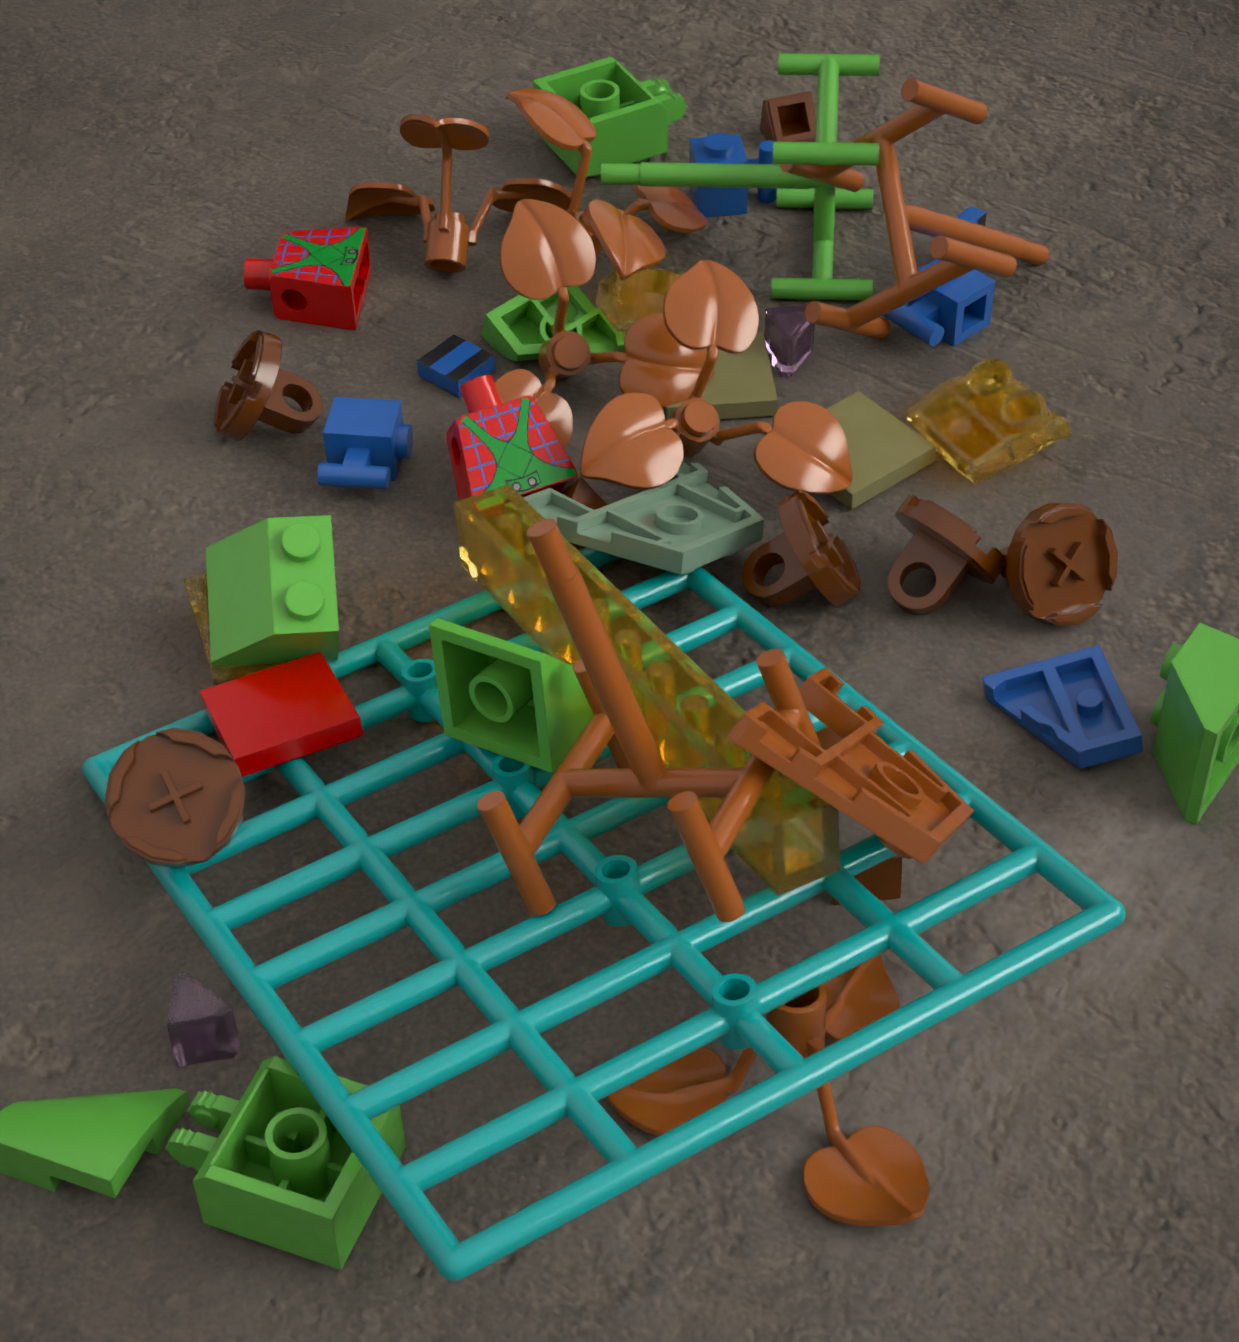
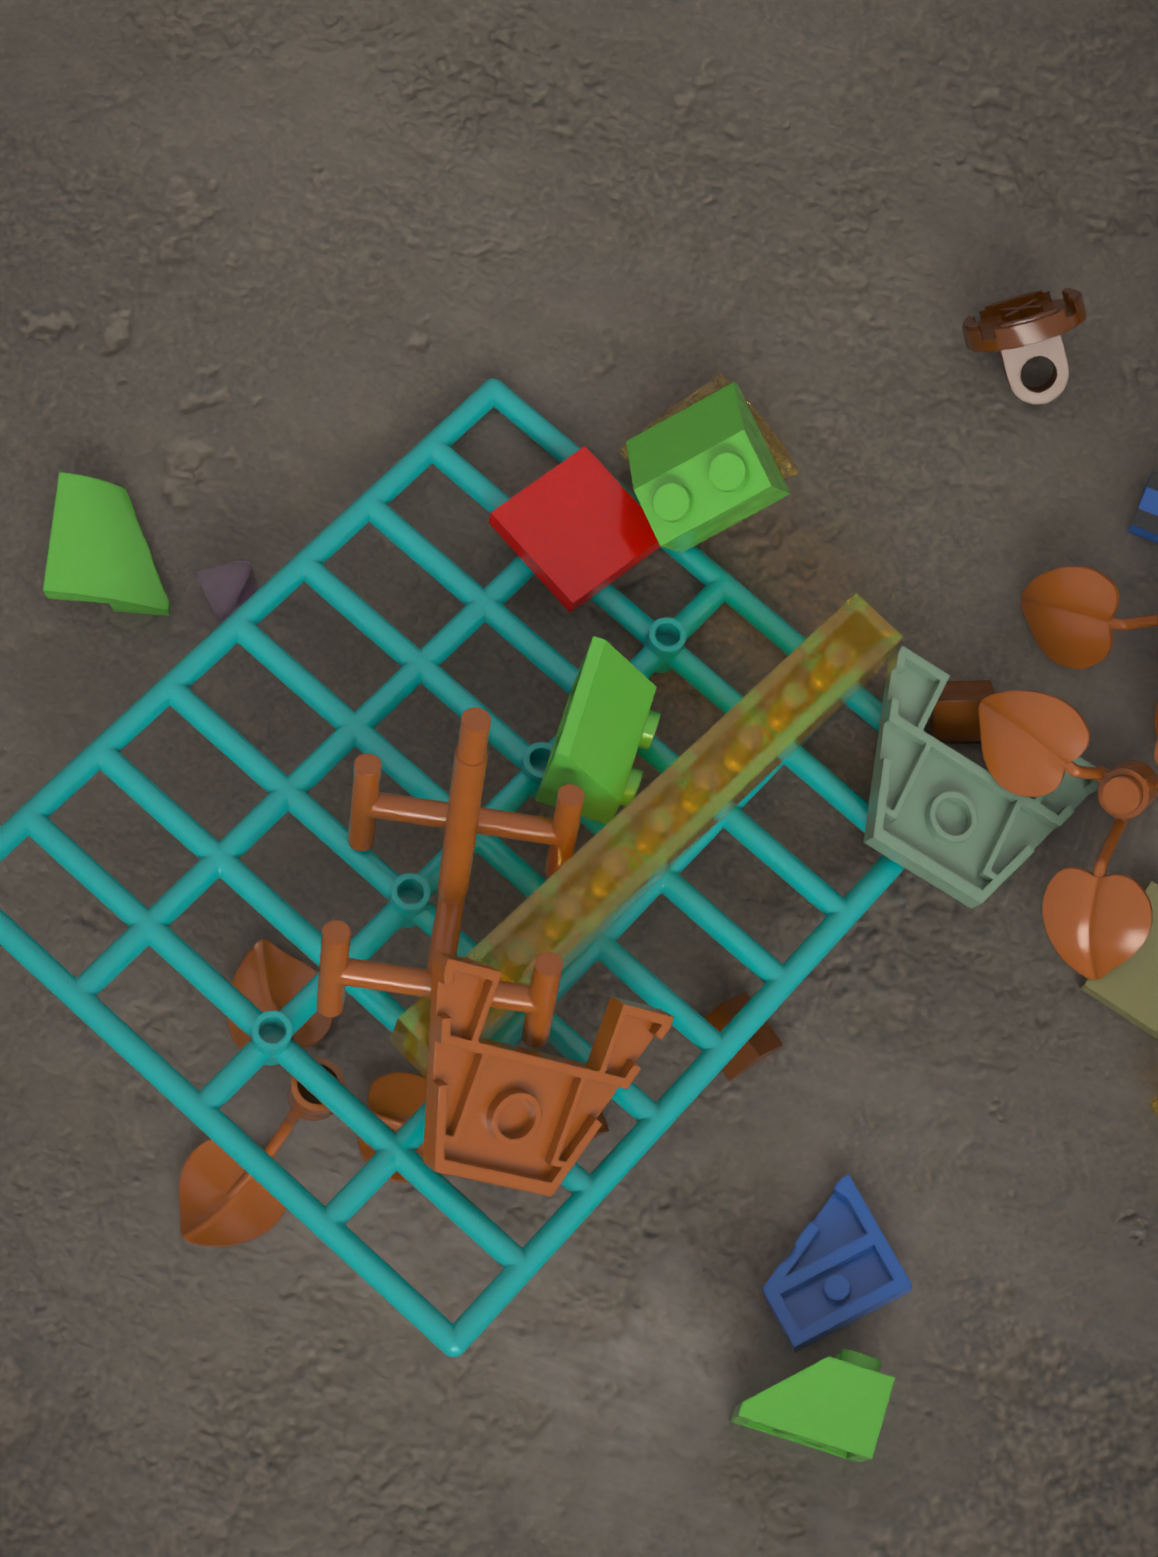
camera: 70 degrees right, 30 degrees up
(175, 798) = (403, 485): reddish brown tile -> none
(281, 1166) = (81, 693): bright green hinge -> none
(364, 443) = (996, 461): blue brick -> none
(505, 445) = (1001, 612): torso -> none
(808, 555) = (954, 965): reddish brown tile -> none
(942, 546) = (1008, 1102): reddish brown tile -> none
(1061, 563) = (1016, 1220): reddish brown tile -> none

